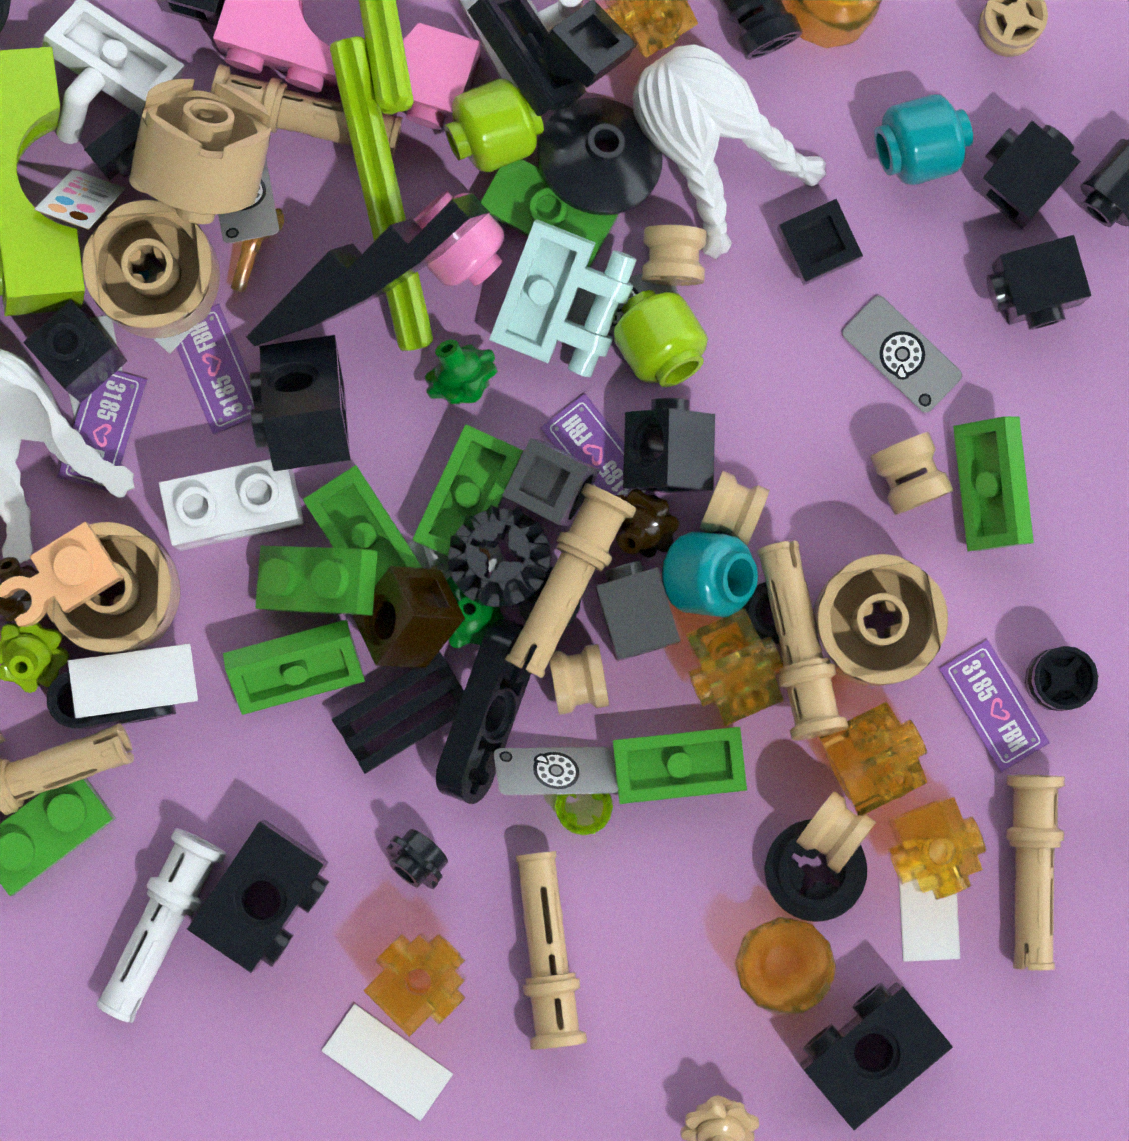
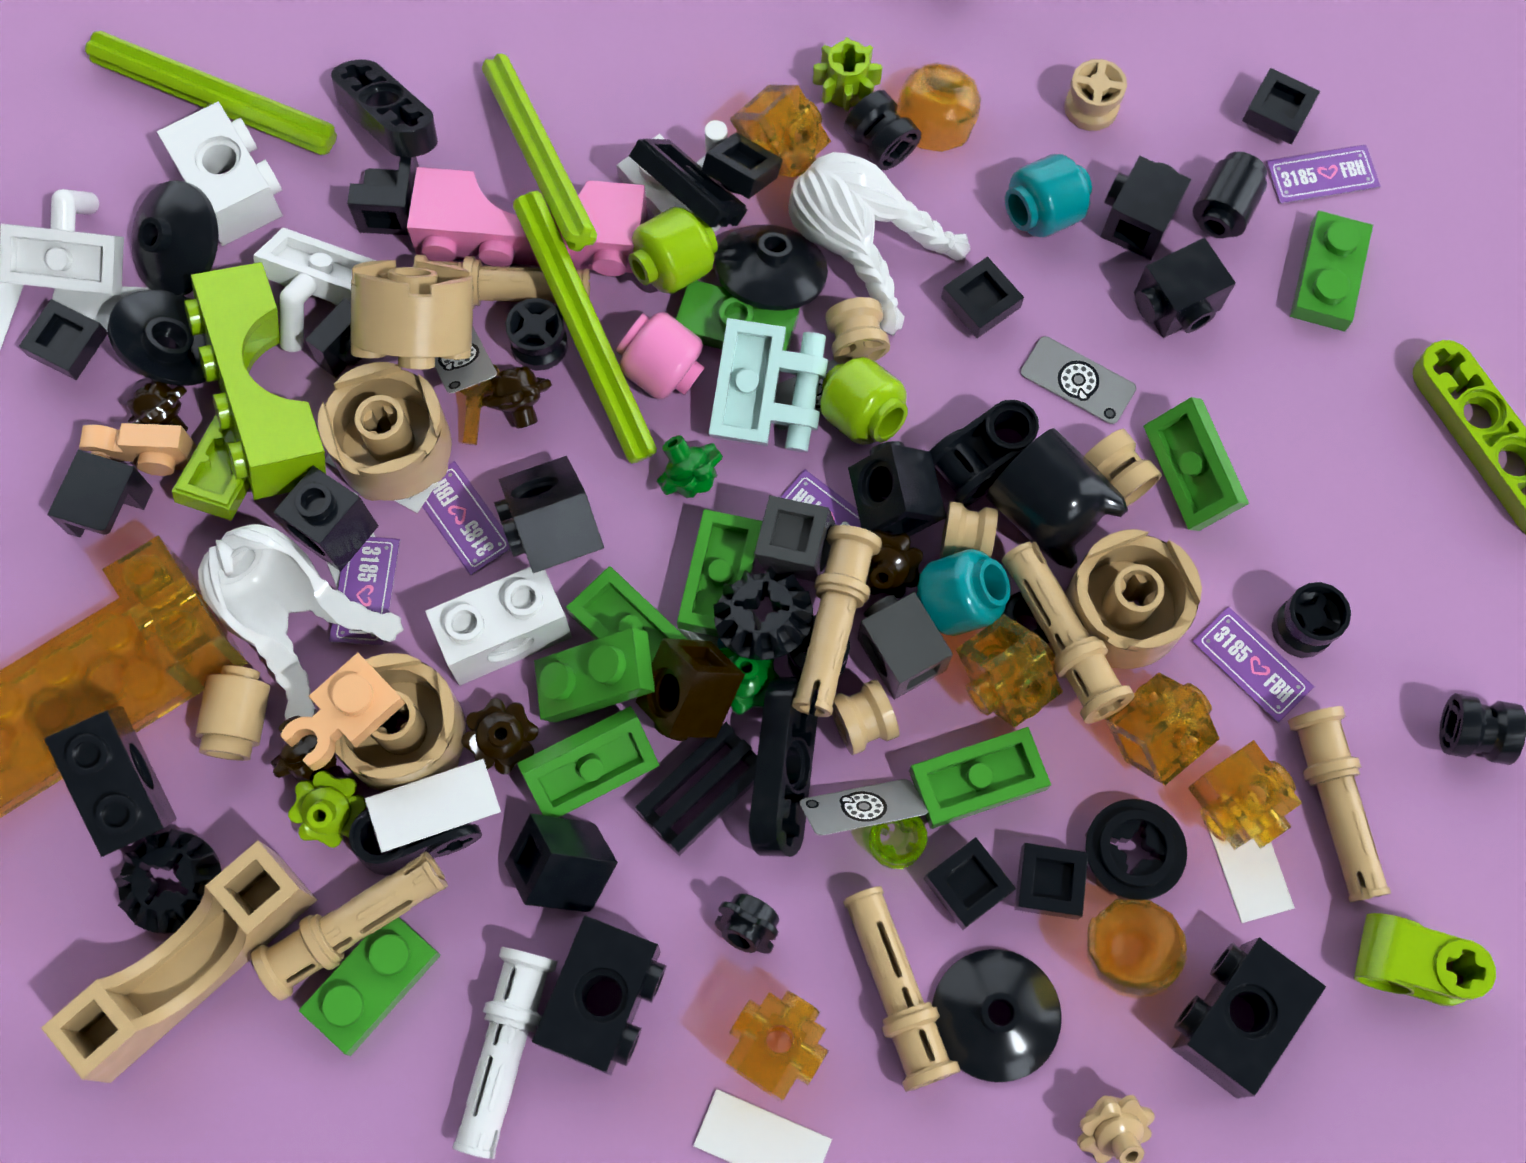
camera: 15 degrees left, 15 degrees down
(80, 199) = (305, 384): white sticker -> none
(211, 617) = (500, 735): none -> dark brown plant
(247, 759) = (560, 863): none -> black panel
(296, 248) = (517, 392): none -> dark brown plant
(325, 172) = (534, 320): none -> black wheel
(350, 278) = (568, 403): black slope -> none
(633, 961) = (970, 1036): none -> black dish
(642, 867) = (969, 883): none -> black plate
(723, 883) = (1051, 881): none -> black plate
(770, 424) = (975, 455): none -> black piece
(832, 493) = (1055, 496): none -> black piece
(836, 832) = (1151, 800): tan wheel -> none
(1051, 1036) = (1412, 961): none -> lime piece

